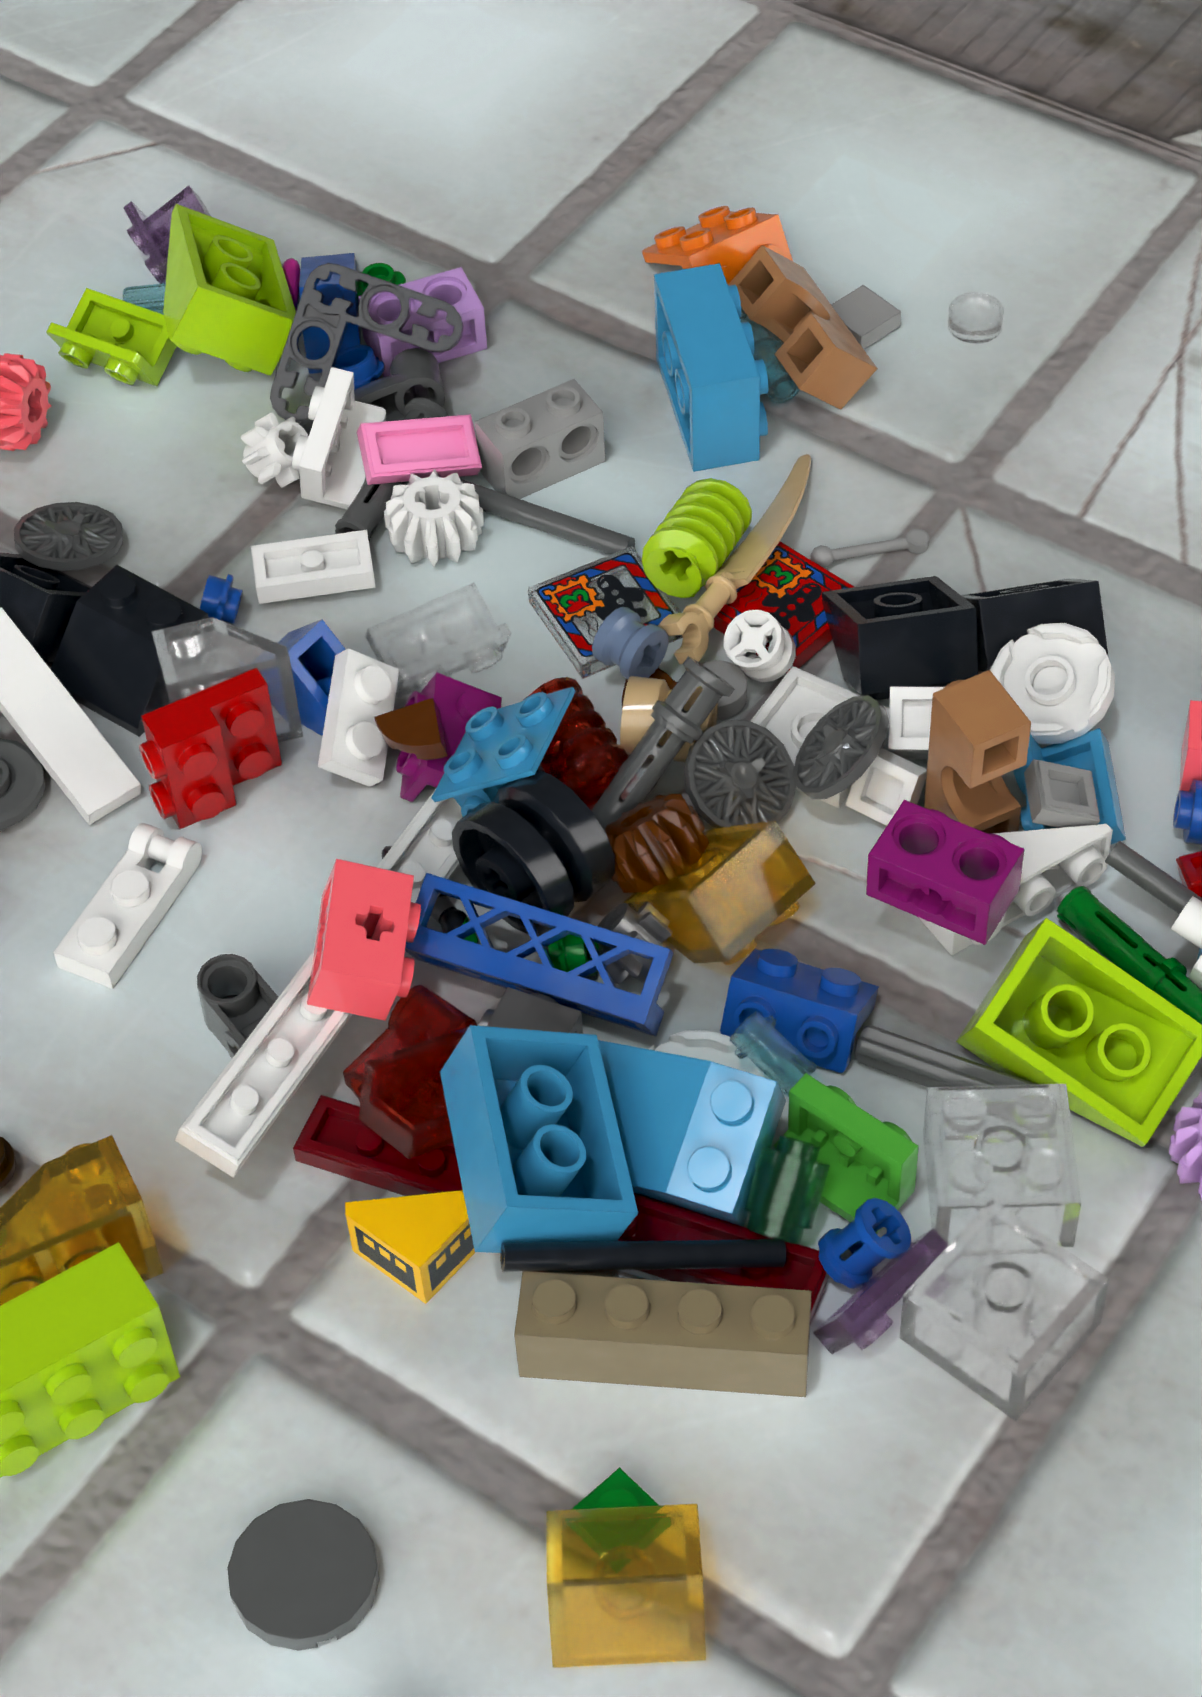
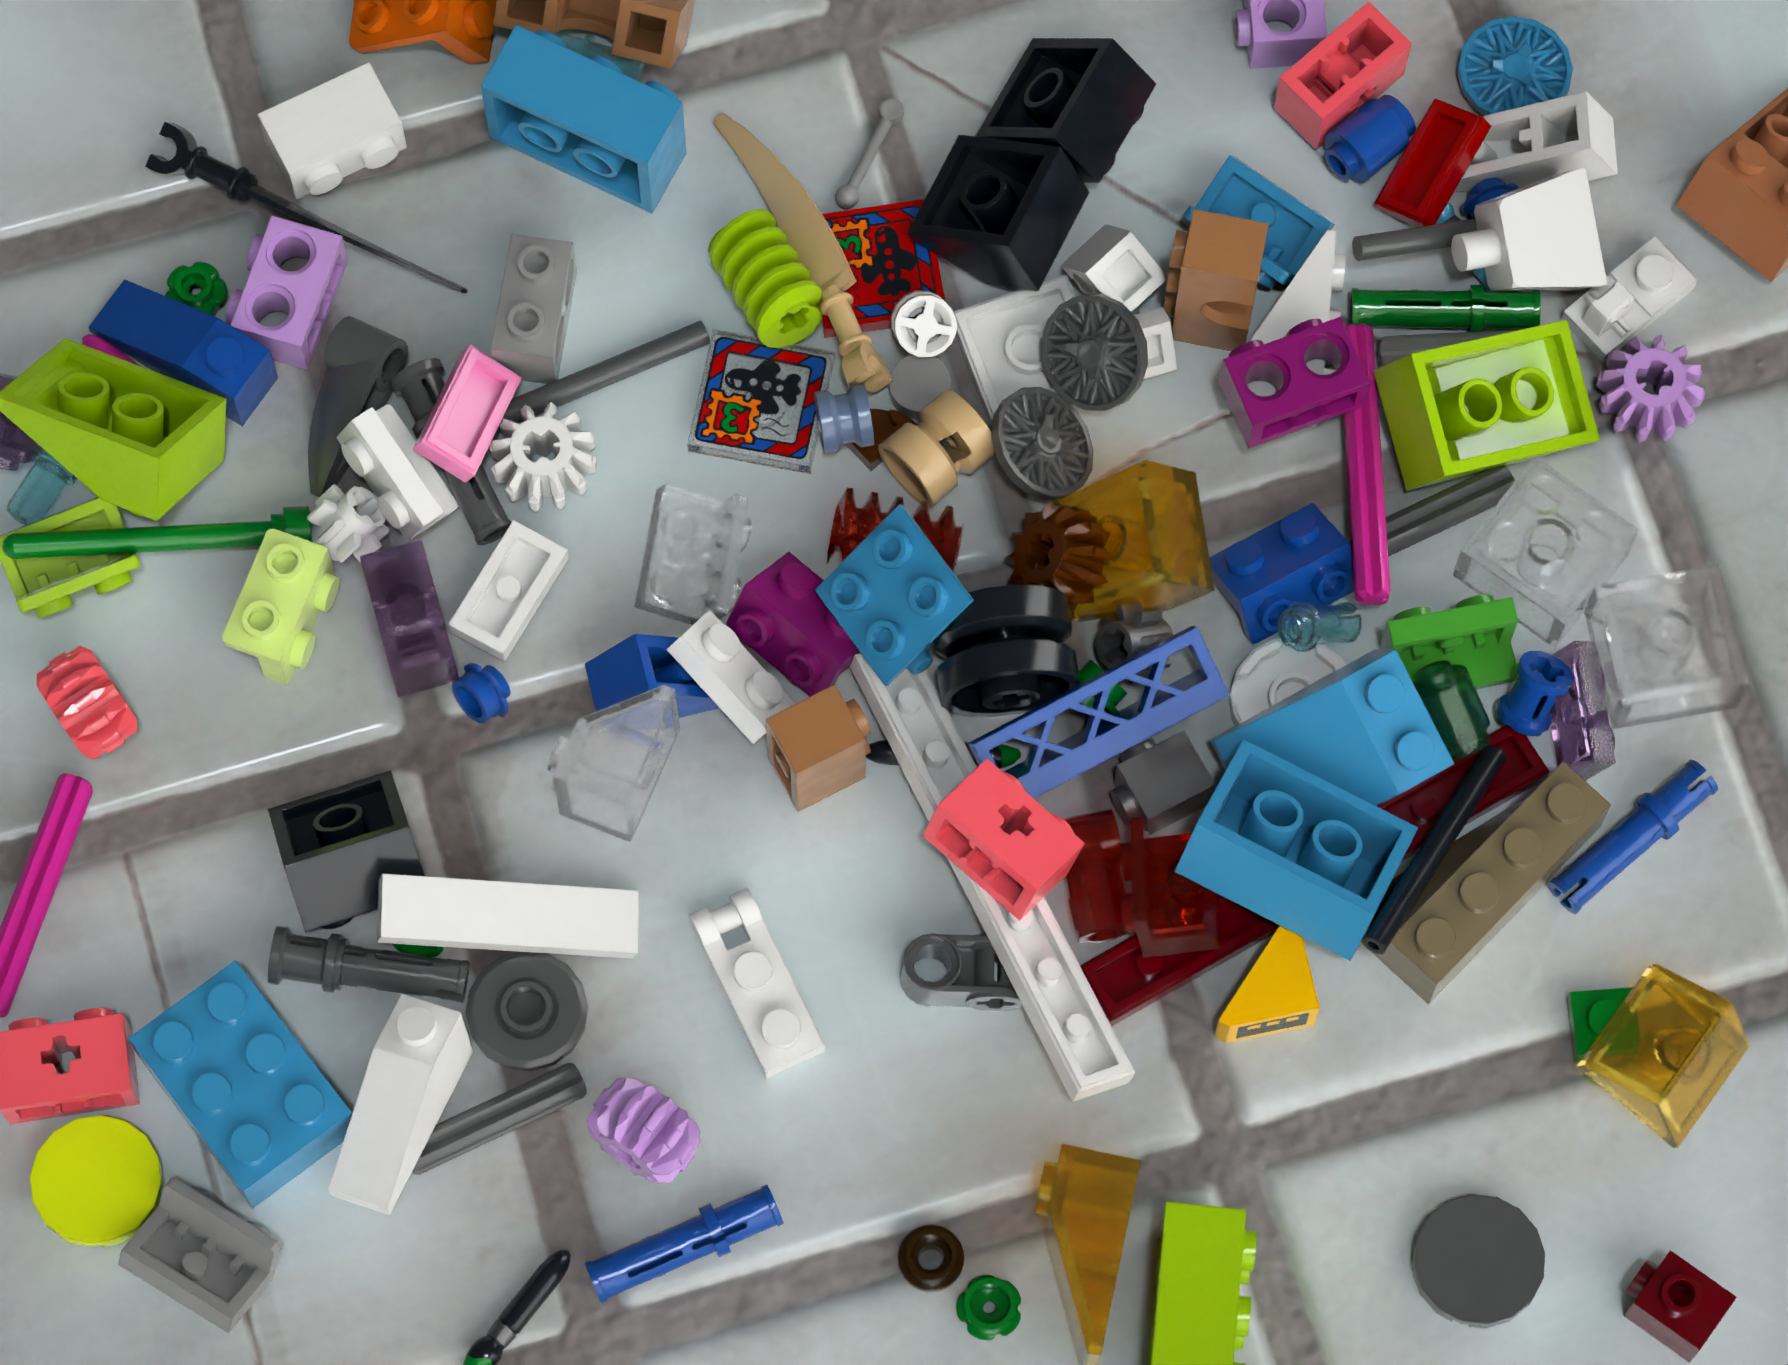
camera: 55 degrees left, 20 degrees up
(68, 536) = (286, 760): dark grey wheel -> none
(110, 650) = (485, 801): black slope -> none
(179, 454) = (281, 603): none -> yellowish green bracket
(208, 746) = (679, 830): red plate -> none
(227, 514) = (409, 618): none -> clear purple brick
(233, 421) = (156, 538): none -> green piece
(335, 320) = (266, 368): black beam -> none
(341, 793) = (818, 746): none -> medium nougat brick
(362, 362) = (283, 381): blue plate -> none
(415, 730) = (803, 647): reddish brown tile -> none
(477, 255) = (243, 186): none -> black sword
(565, 271) = (333, 131): none -> white brick
(684, 728) = (980, 455): dark grey pin -> none
(813, 1418) = (1654, 818): none -> blue pin
(926, 997) = (1366, 484): none -> dark pink axle
(1057, 680) = (1163, 152): white tile -> none
(1061, 795) = (1287, 238): light grey tile -> none

